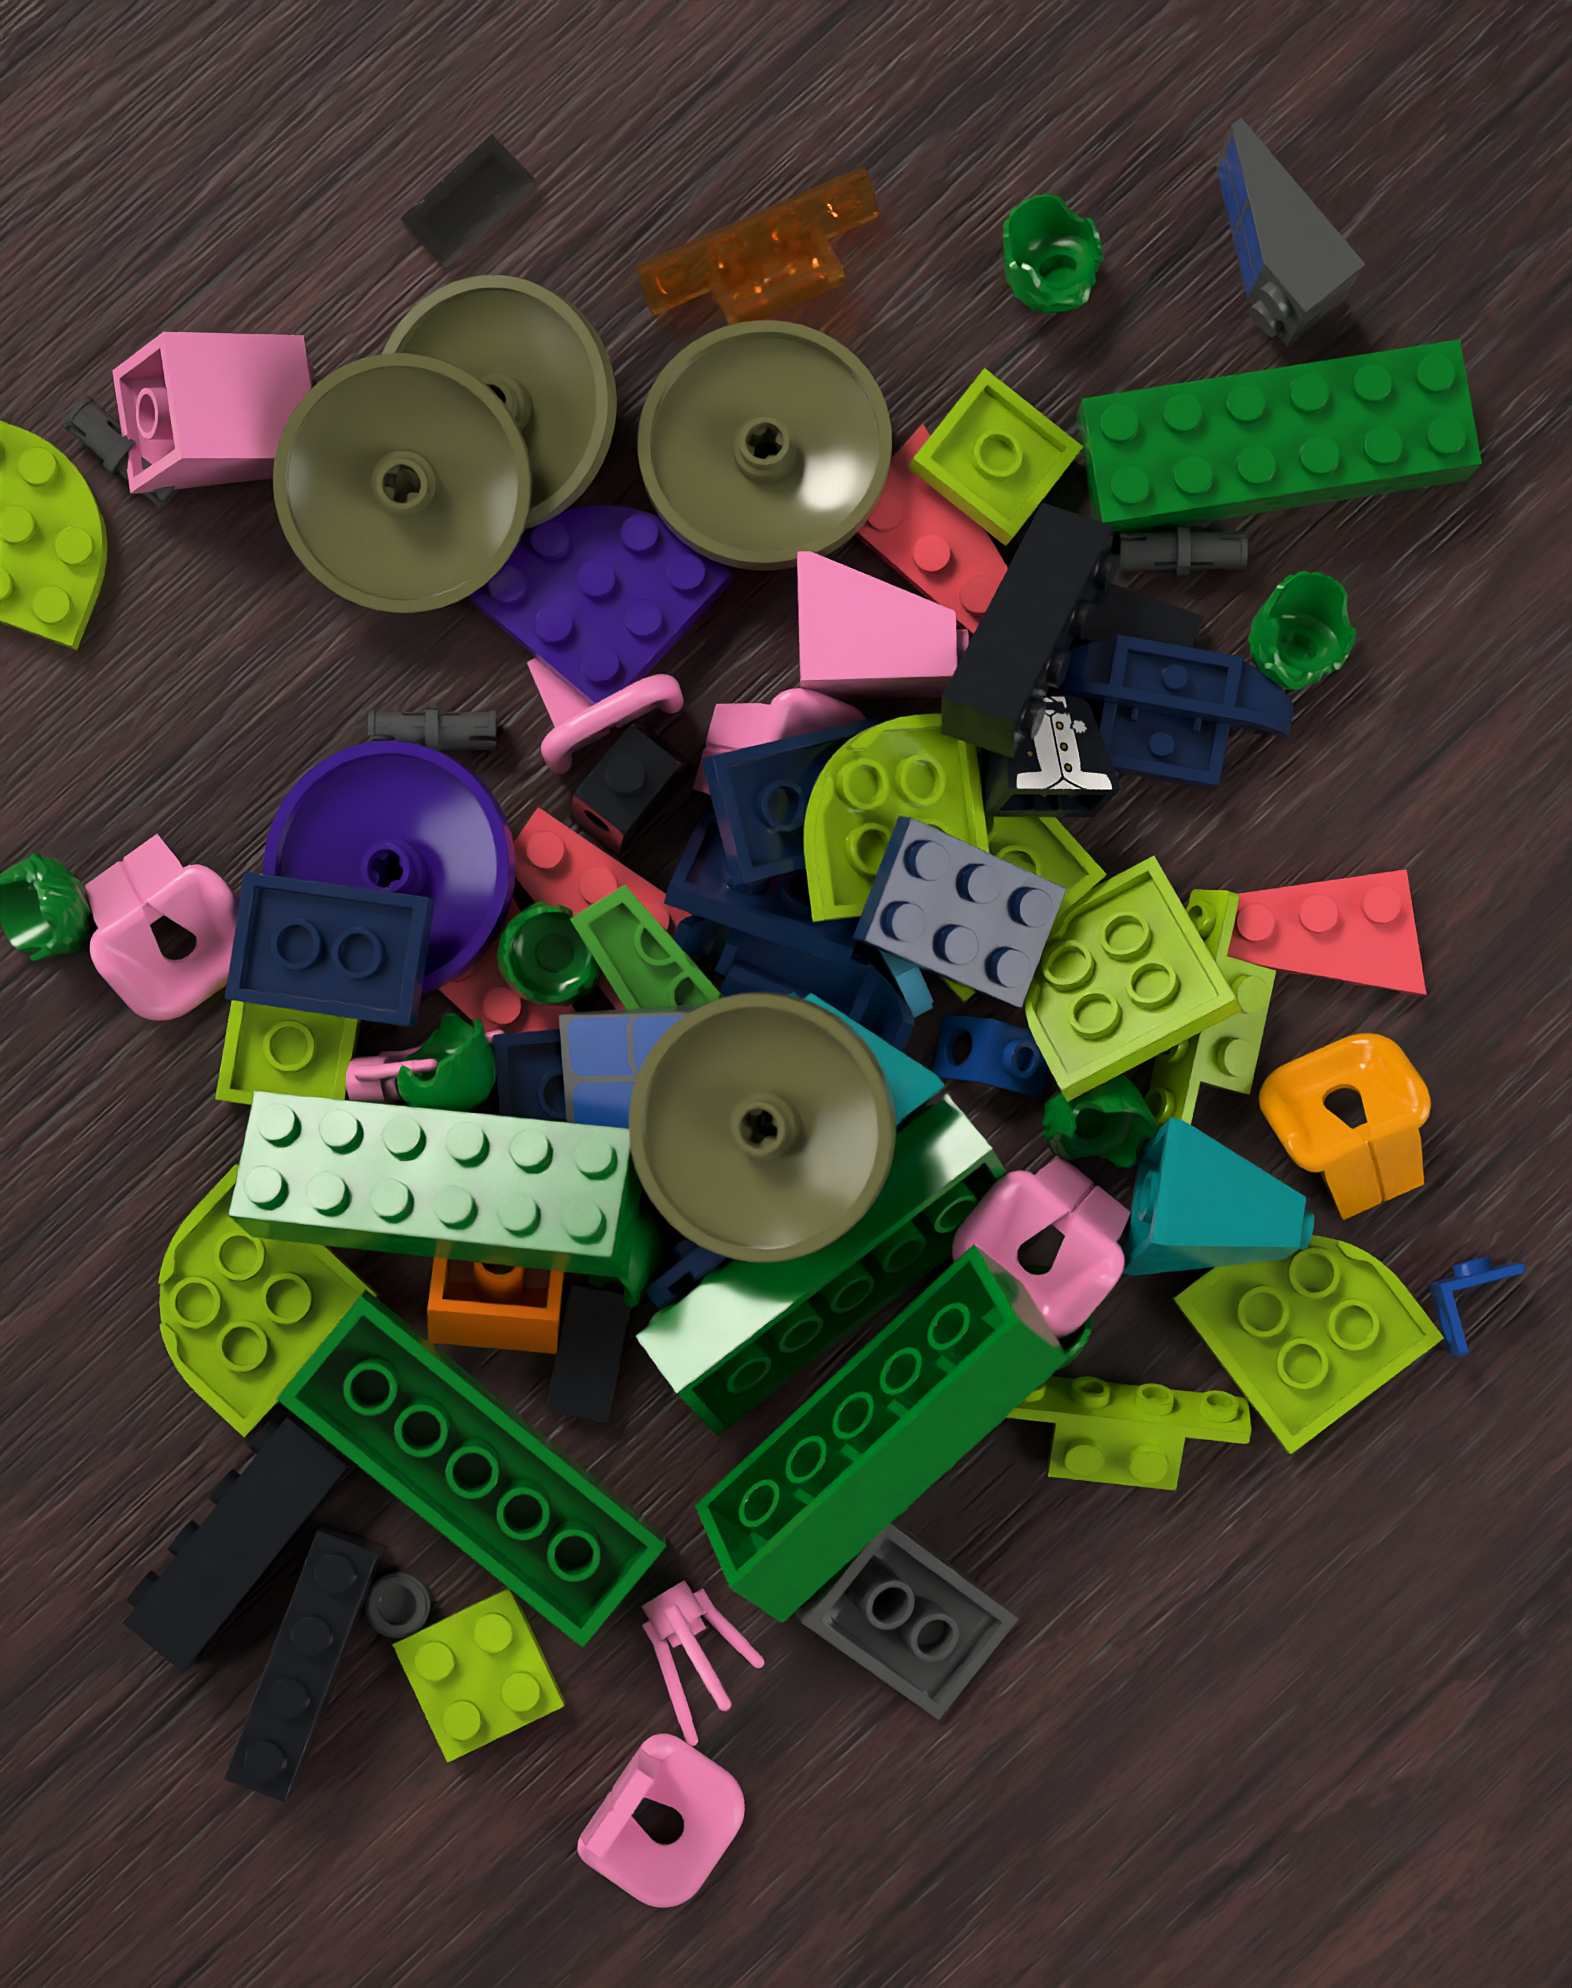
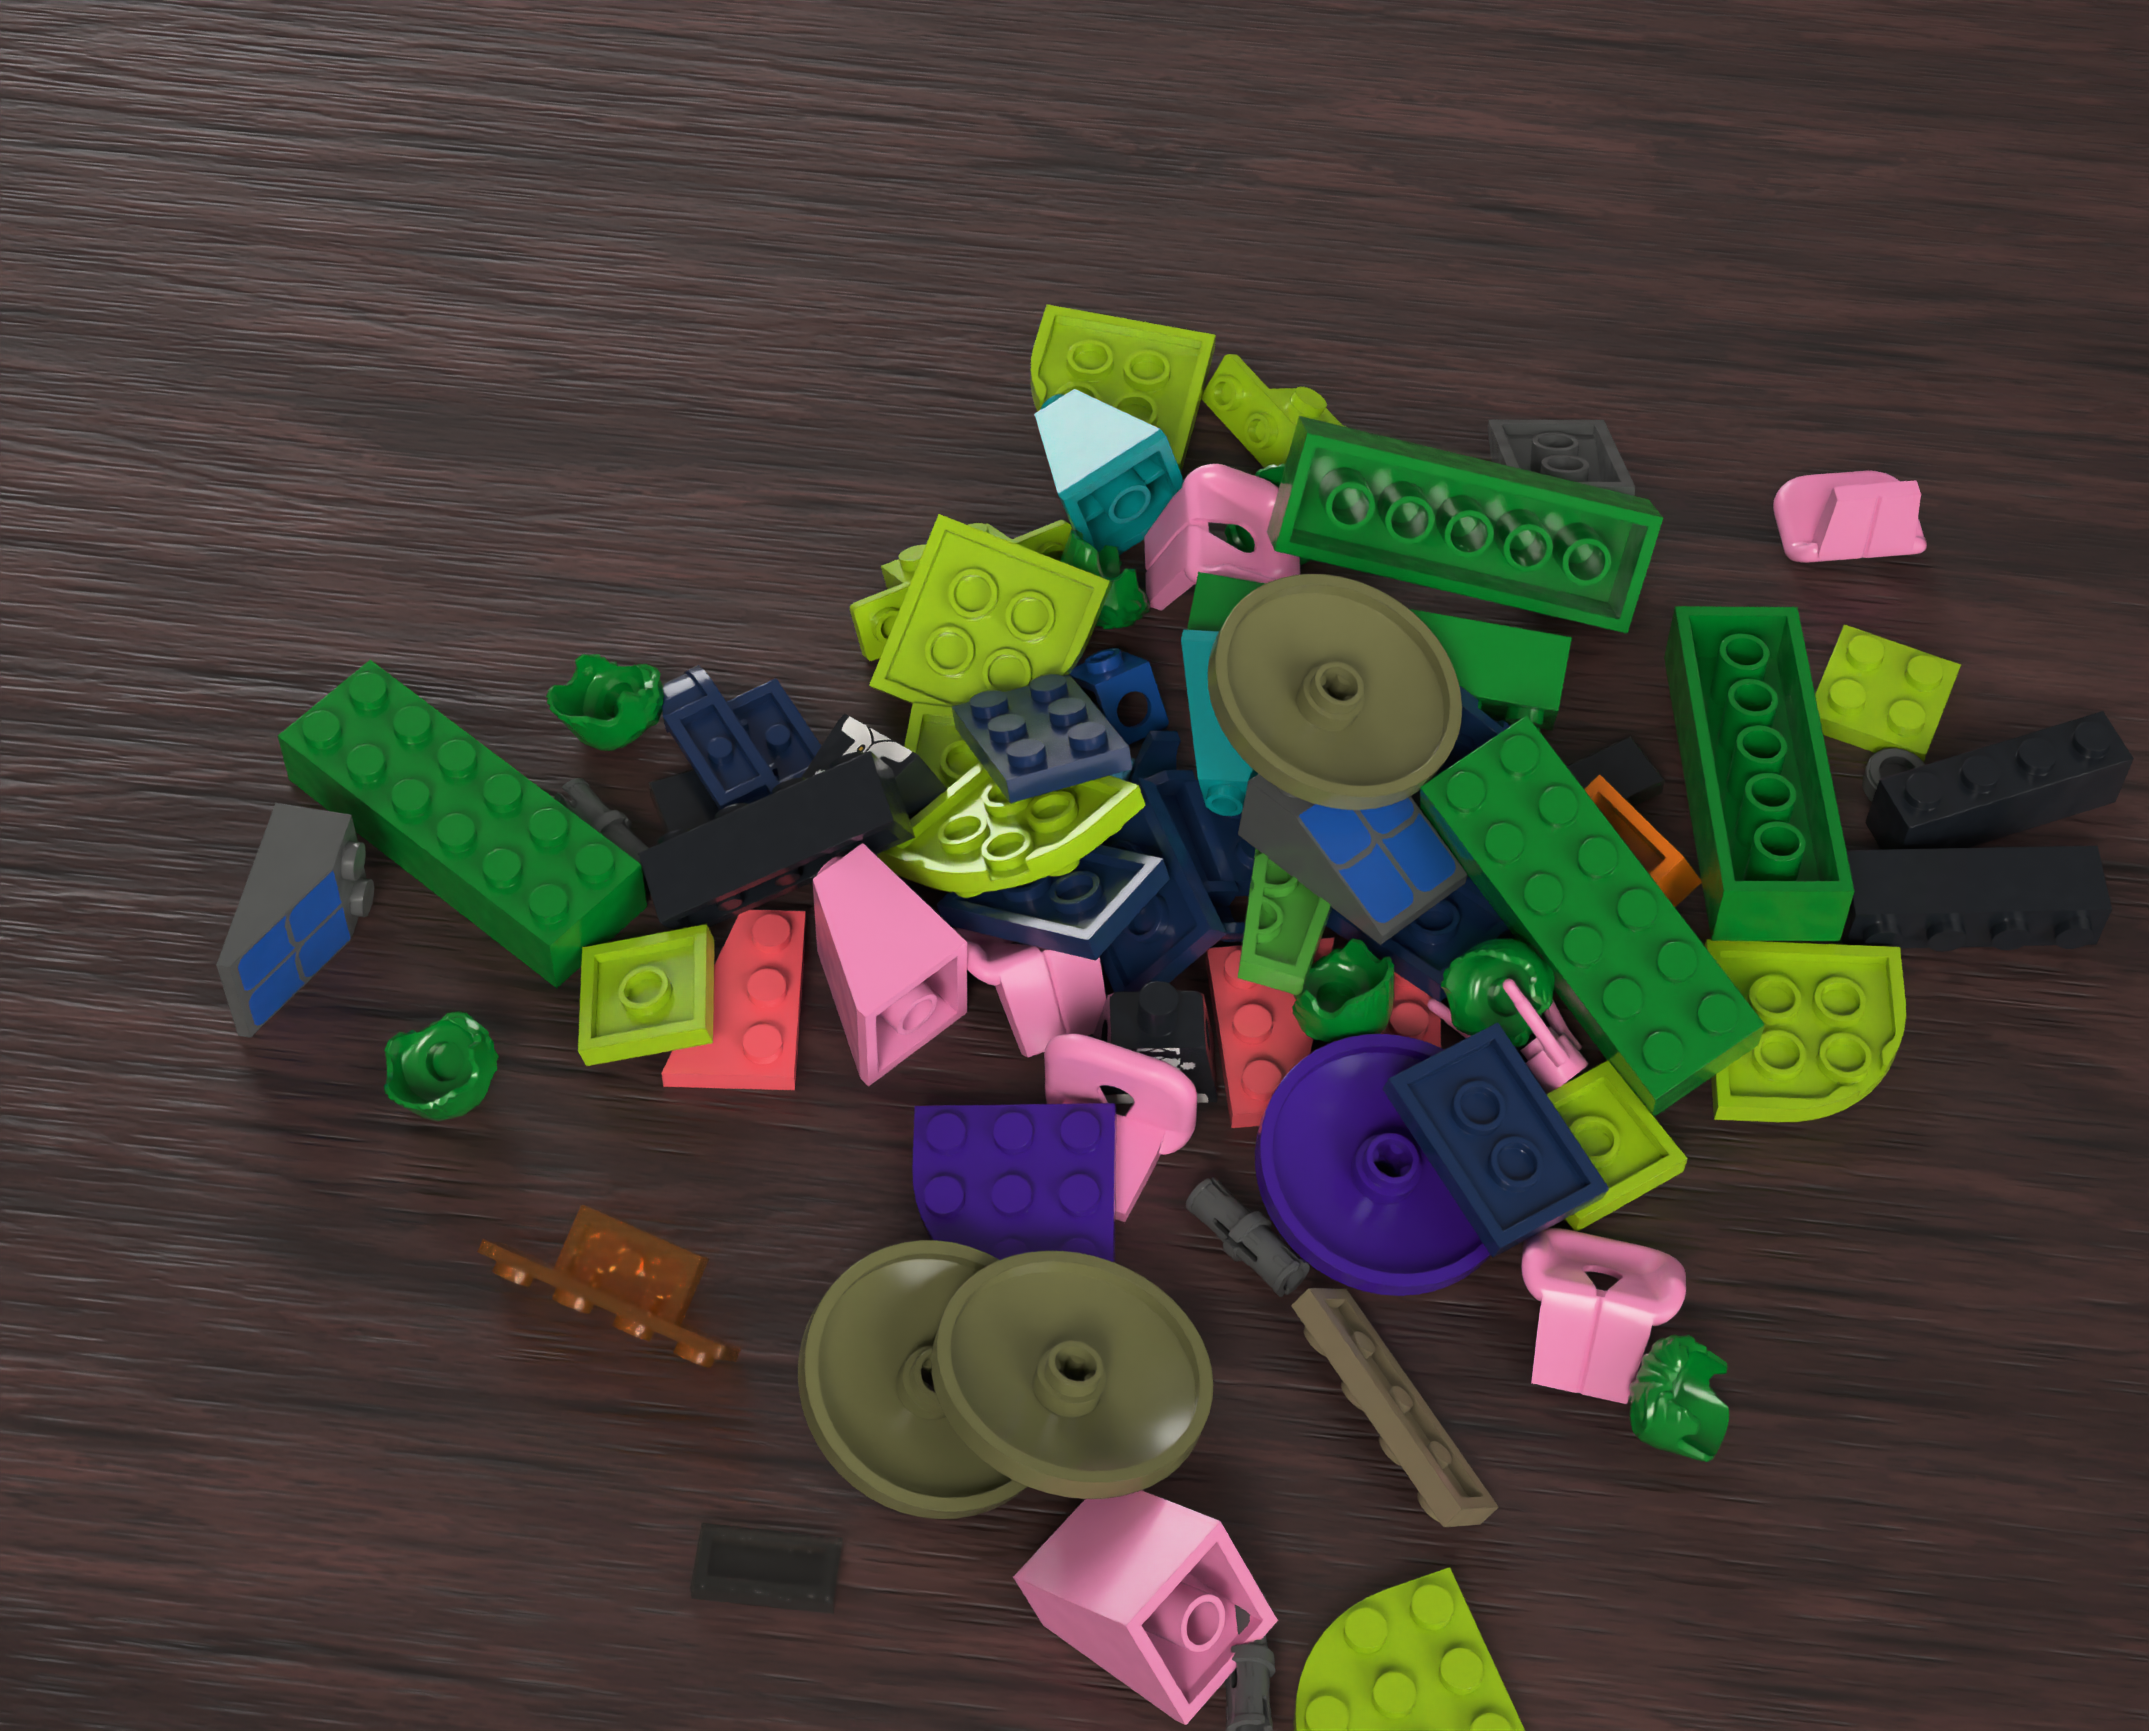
camera: 135 degrees left, 30 degrees down
(213, 711) = (1406, 1424): none -> dark tan plate
(677, 1617) = (1713, 587): bright pink plant -> none
(756, 392) = (776, 1103): olive dish -> none
(1334, 930) = (811, 553): coral wing -> none
(1362, 1162) = (903, 433): light orange piece -> none
(1466, 1275) = (996, 320): blue bracket -> none

